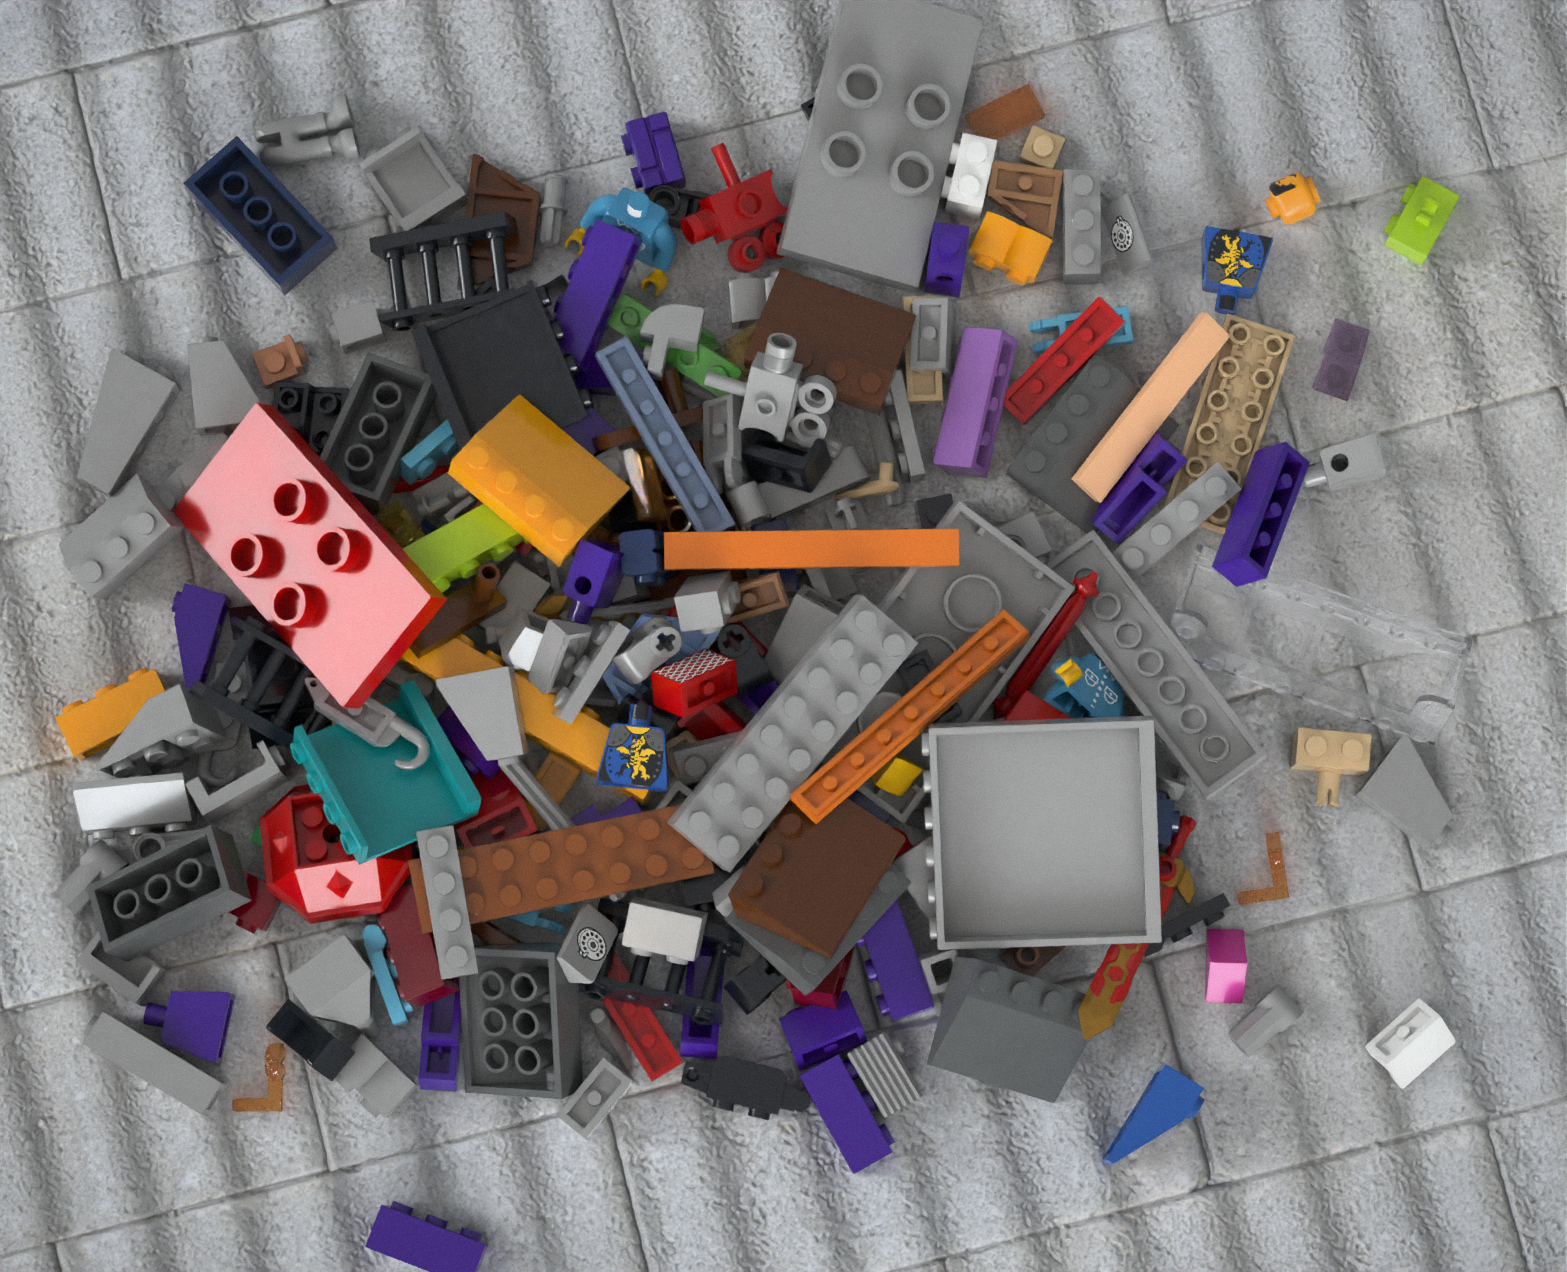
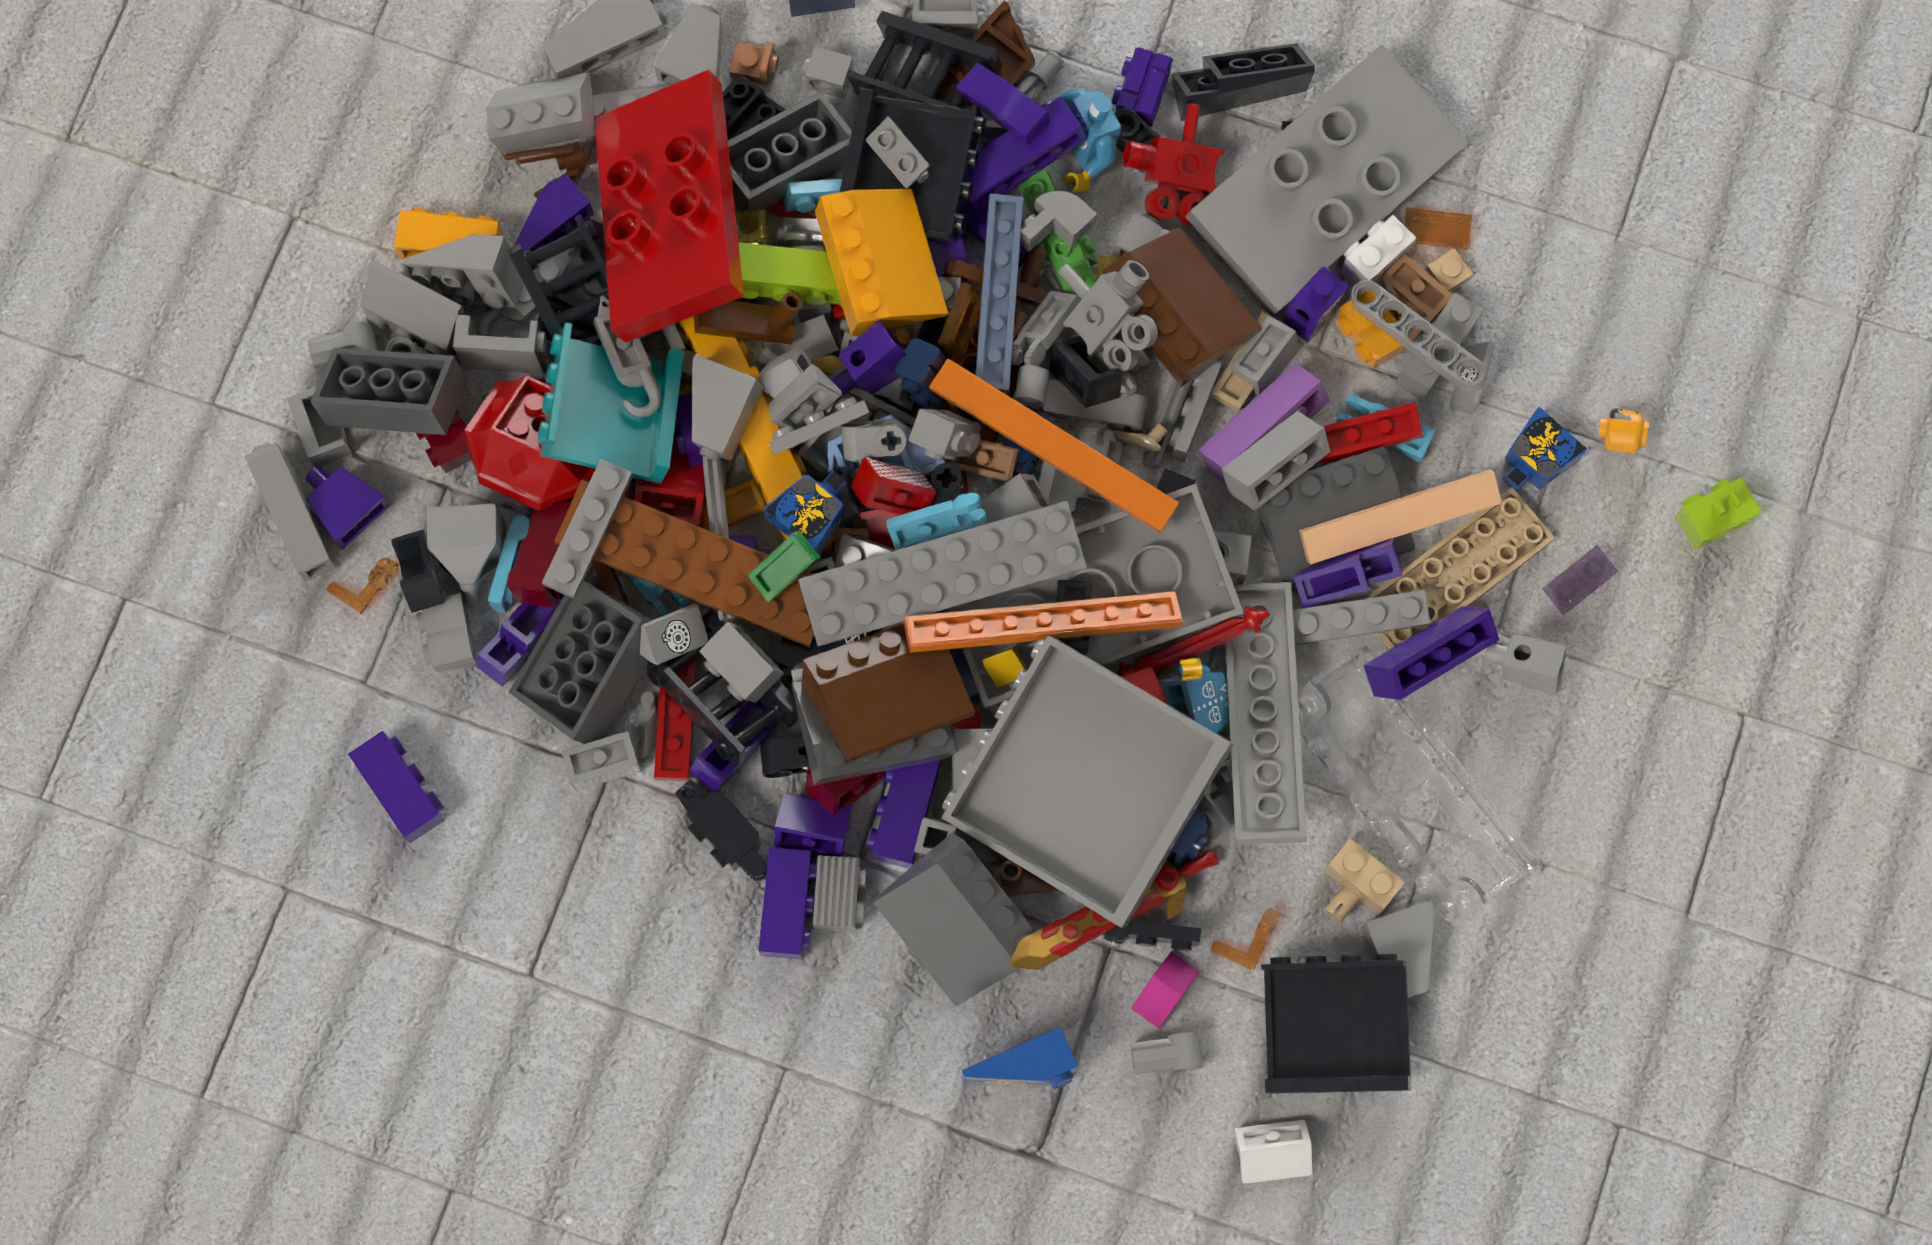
camera: 35 degrees right, 5 degrees down
(168, 563) = (566, 156): none -> reddish brown plant
(486, 369) = (898, 153): none -> light grey hinge
(547, 258) = (1004, 103): none -> dark purple slope
(648, 819) = (783, 566): none -> green tile
(737, 88) = (1243, 79): none -> black slope
(754, 687) = (936, 521): none -> medium azure hinge
(1011, 429) = (1276, 460): none -> light grey brick
(1075, 242) = (1424, 350): none -> light grey beam
(1395, 900) = (1337, 1025): none -> black panel

